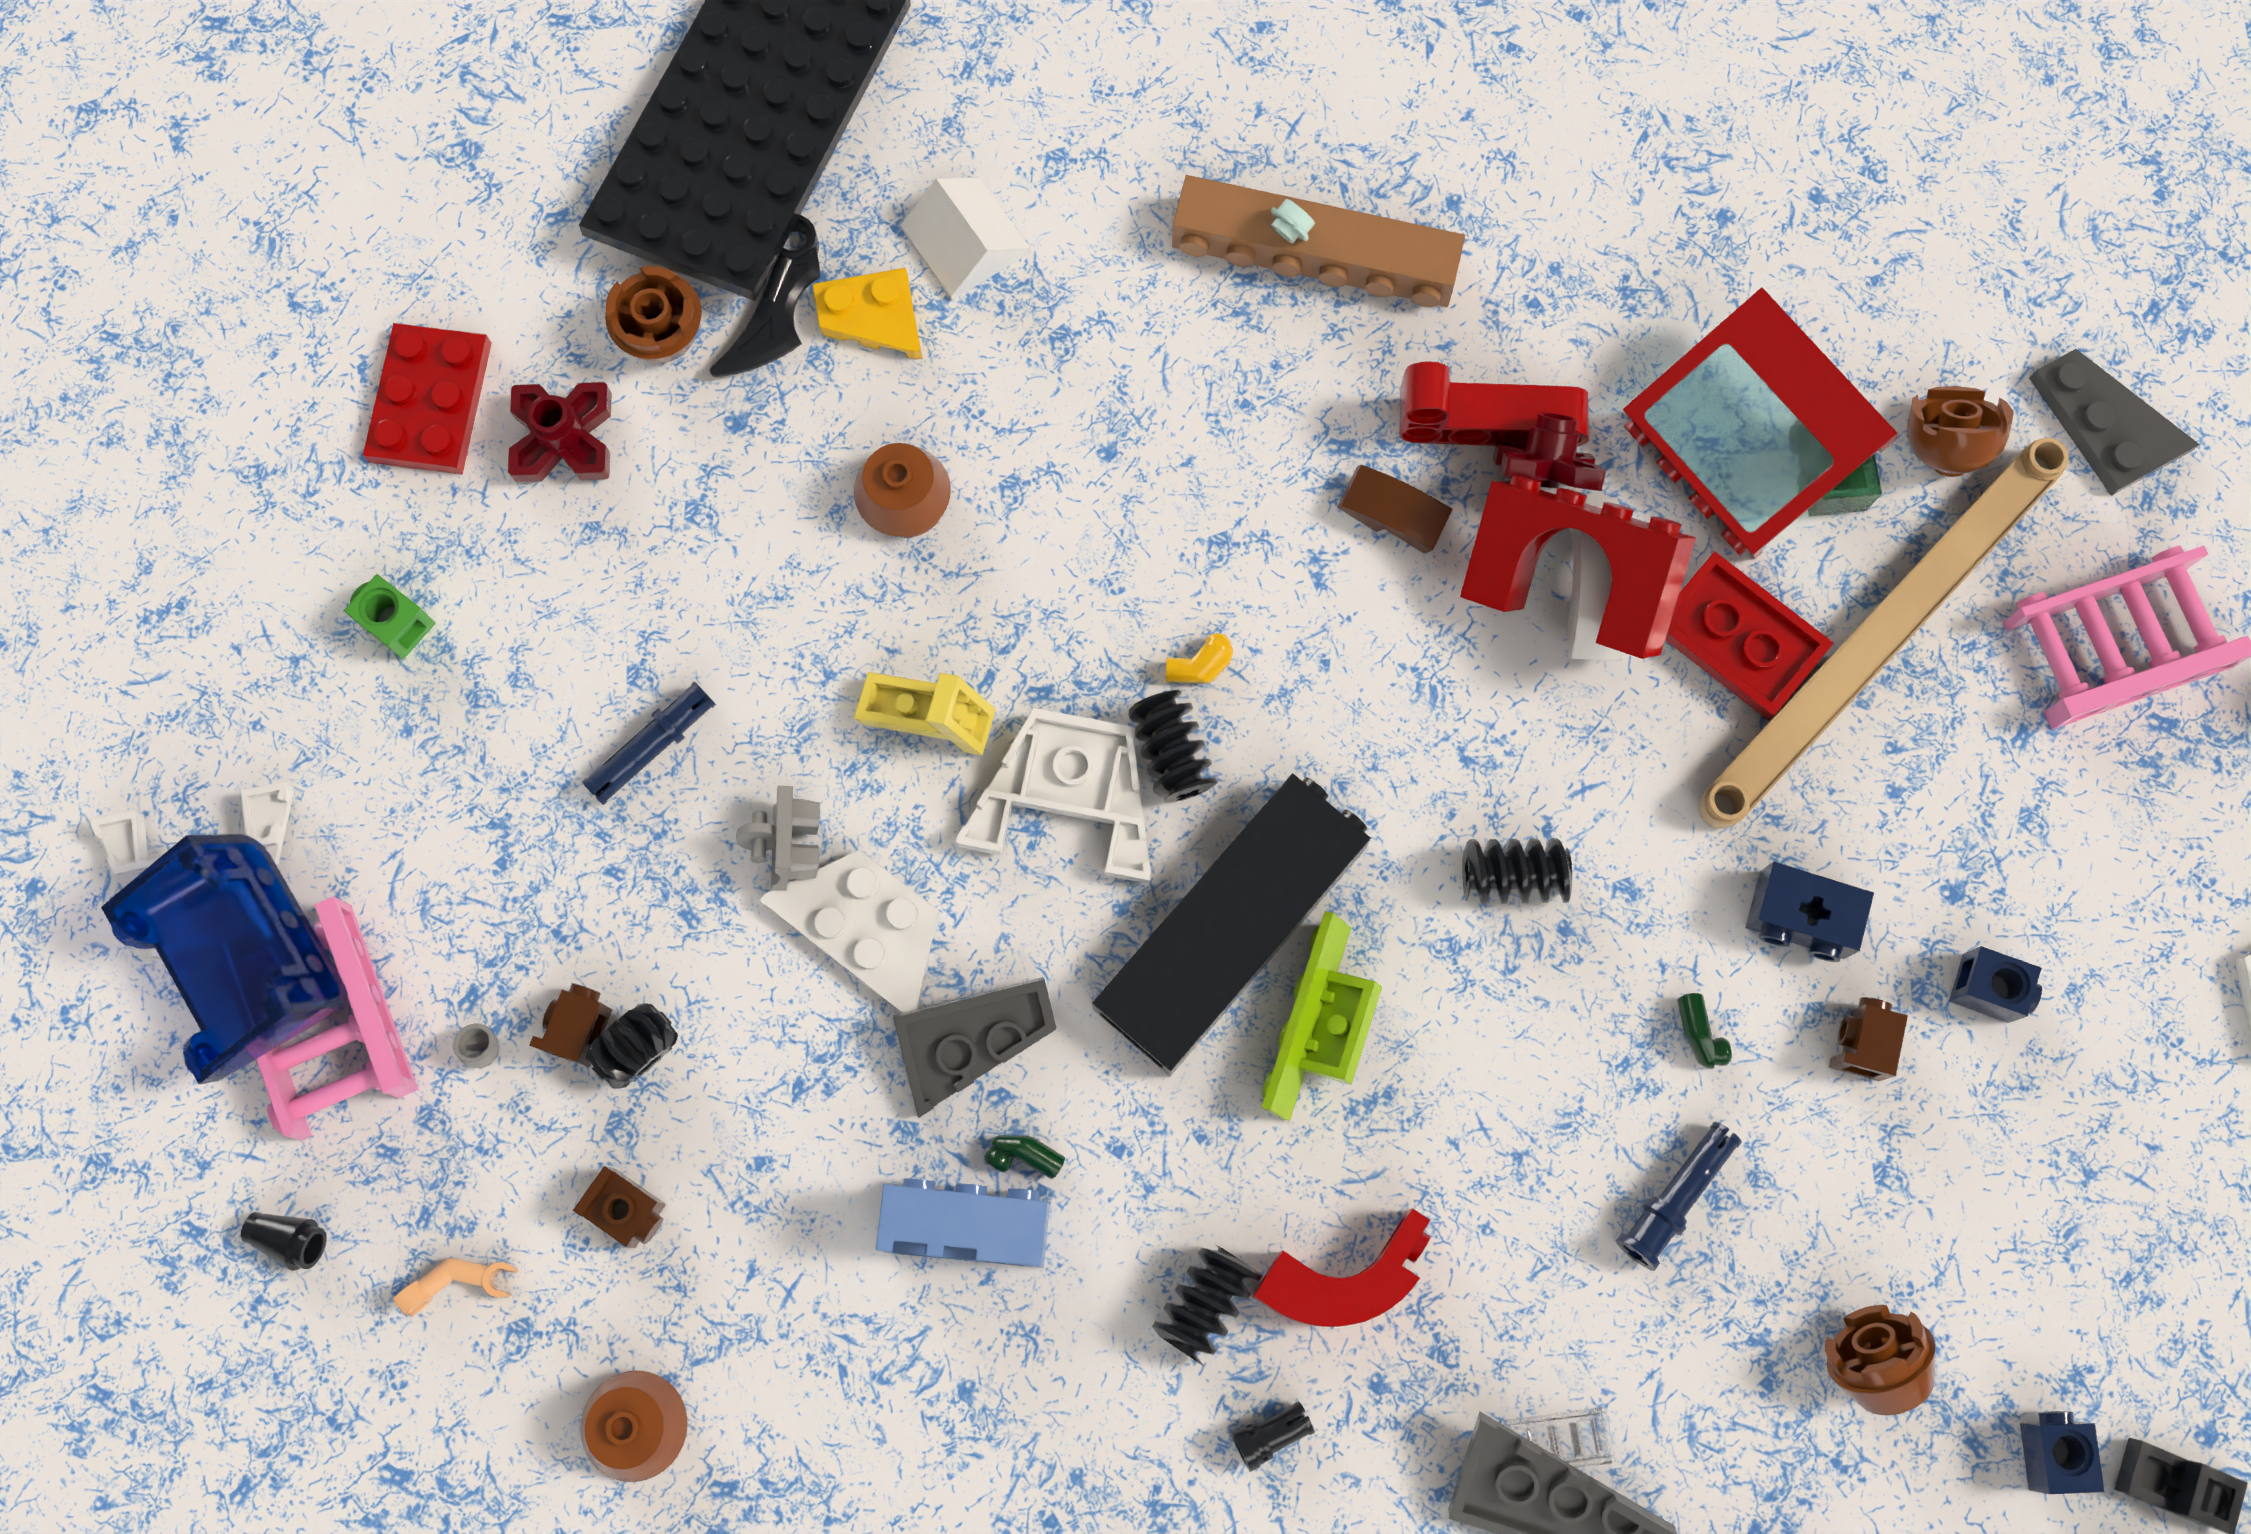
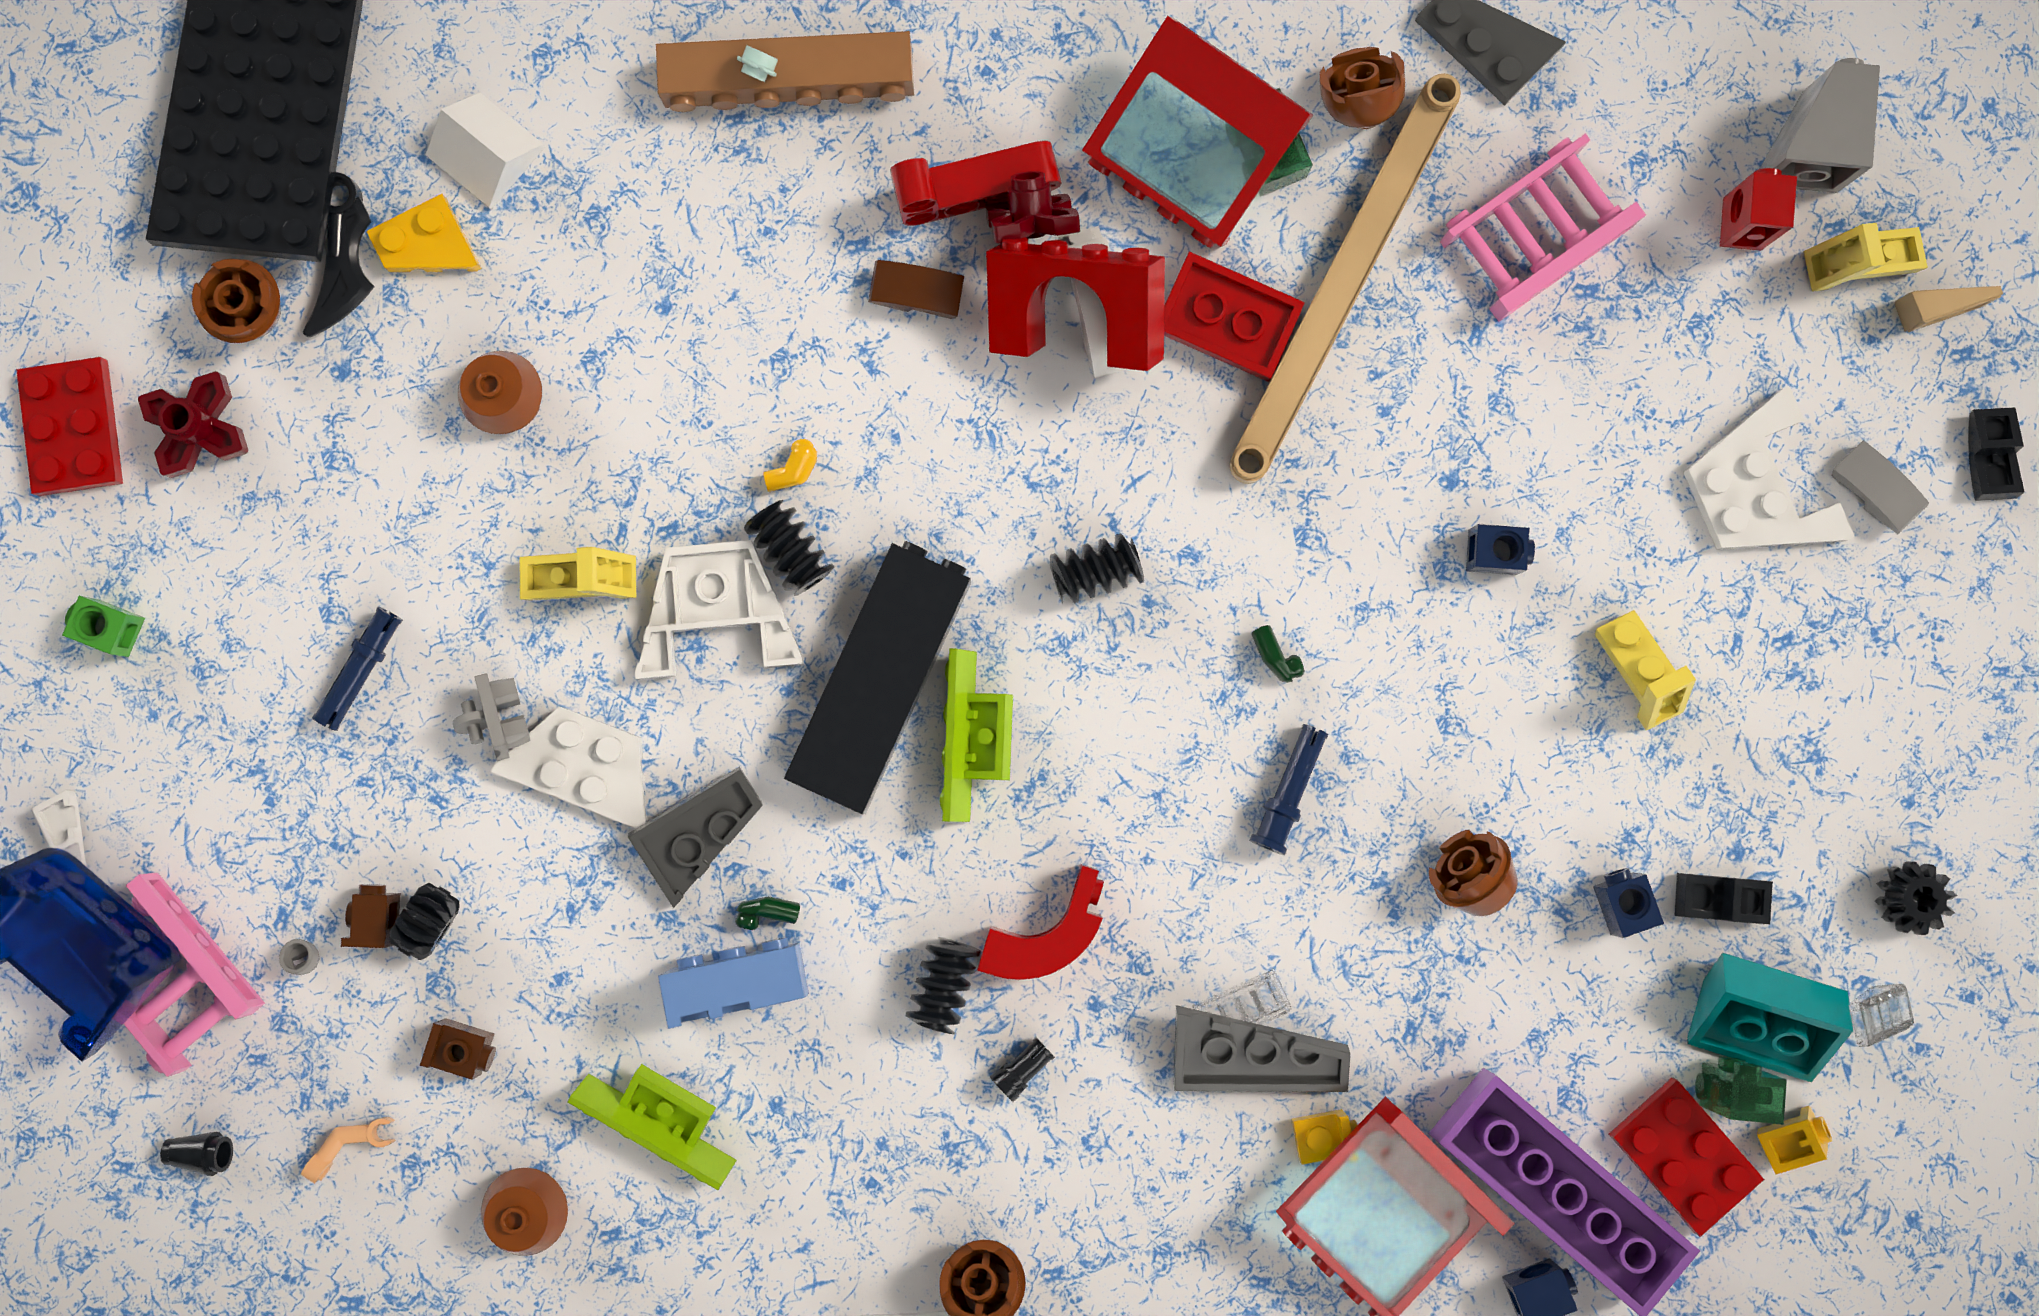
camera: 20 degrees left, 10 degrees up
(828, 1362) = (659, 1119): none -> lime bracket
(1838, 907) = (1359, 522): dark blue brick -> none
(1870, 1040) = (1409, 623): reddish brown brick -> none
(2145, 1176) = (1646, 669): none -> light yellow bracket

